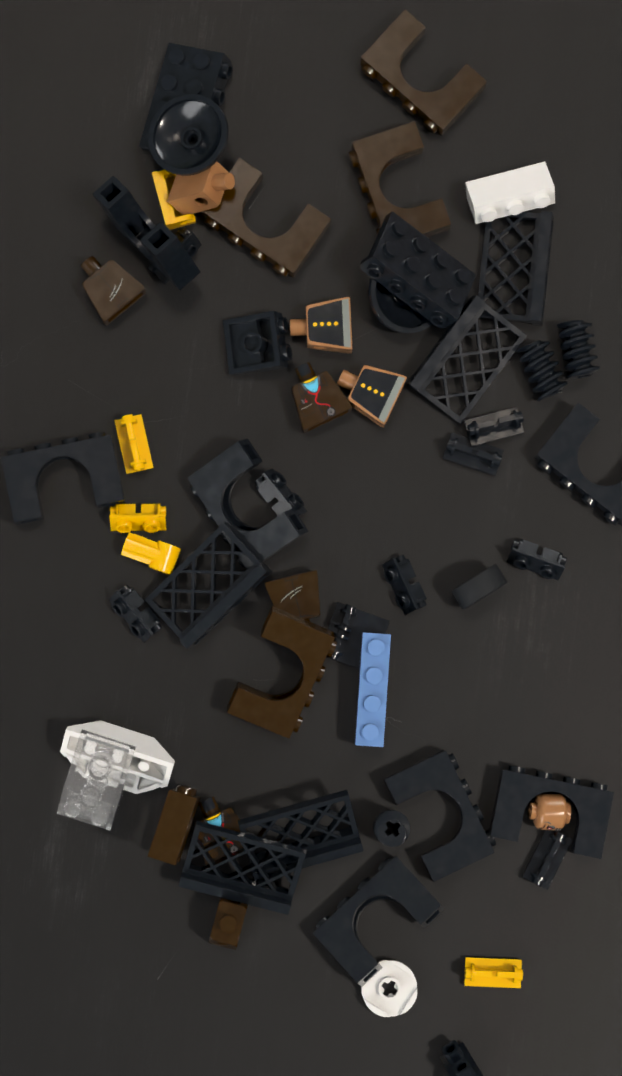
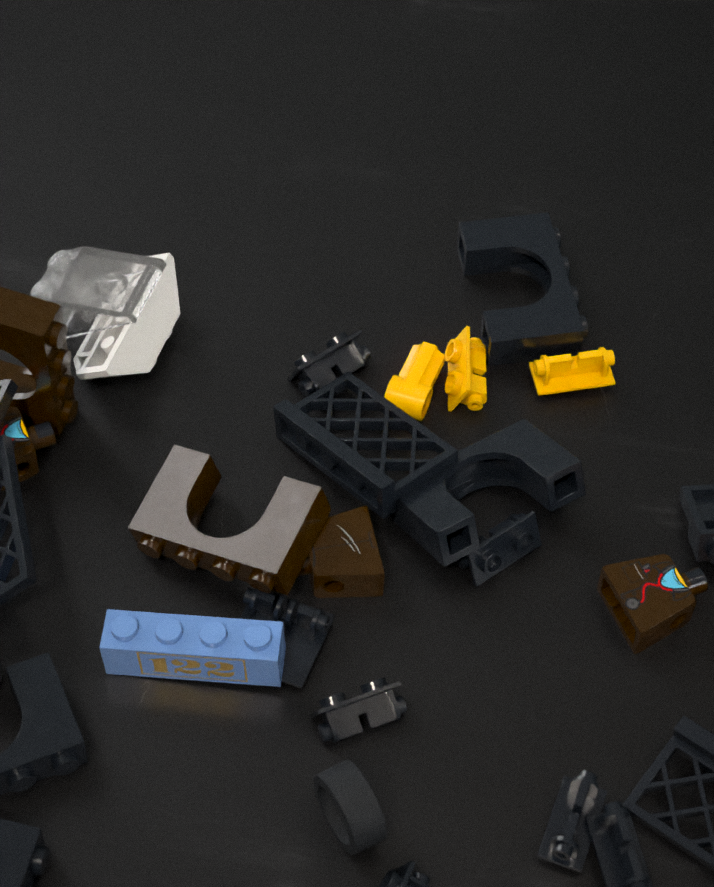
camera: 95 degrees right, 30 degrees down
(373, 392) = (664, 675): torso -> none

